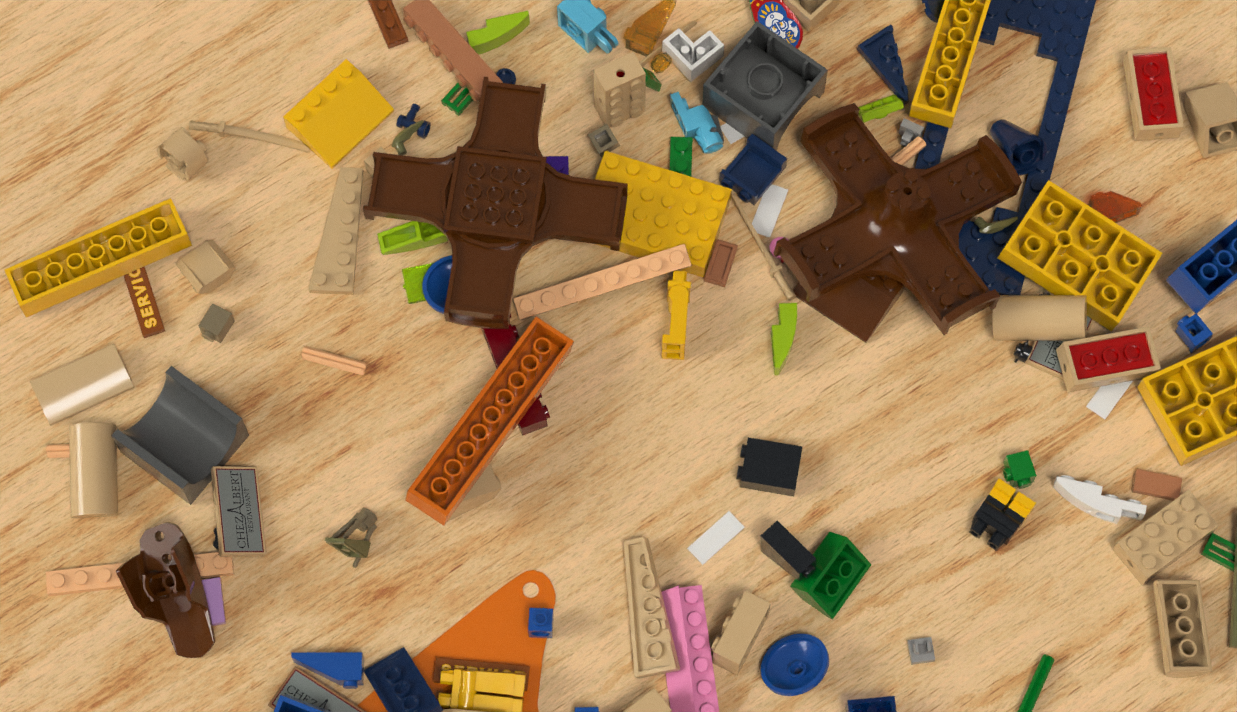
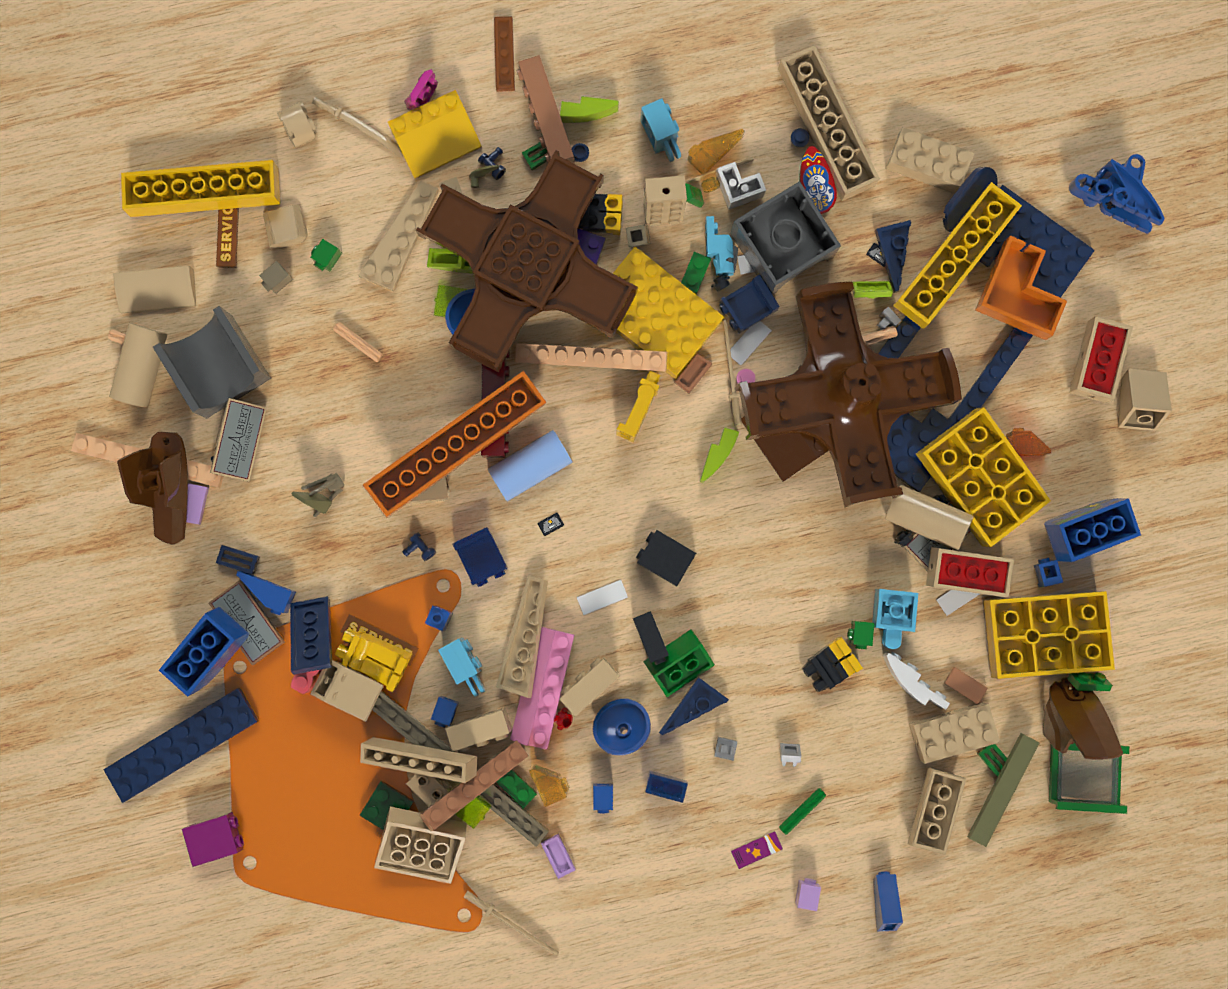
camera: 20 degrees right, 15 degrees up
(263, 281) = (325, 255): none -> green brick
(282, 636) = (253, 564): none -> dark blue tile
(308, 73) = (422, 91): none -> dark pink slope
(483, 551) = (417, 542): none -> dark blue piece
(559, 132) = (603, 214): none -> hips
(561, 541) = (481, 557): none -> clear blue panel
(579, 423) = (530, 465): none -> light blue brick
(588, 660) = (463, 664): none -> medium azure brick
(626, 479) = (550, 524): none -> black sticker
(713, 158) = (720, 282): none -> black plate
(725, 683) = (563, 719): none -> red plate
(868, 610) = (697, 701): none -> dark blue wing
(869, 73) = (875, 253): none -> sticker
(994, 226) = (924, 426): olive bar -> none
(995, 626) = (790, 753): none -> light grey tile
(1019, 145) = (971, 364): dark blue cone -> none
(1033, 63) = (1012, 297): none -> orange piece
(1042, 434) = (892, 615): none -> medium azure brick

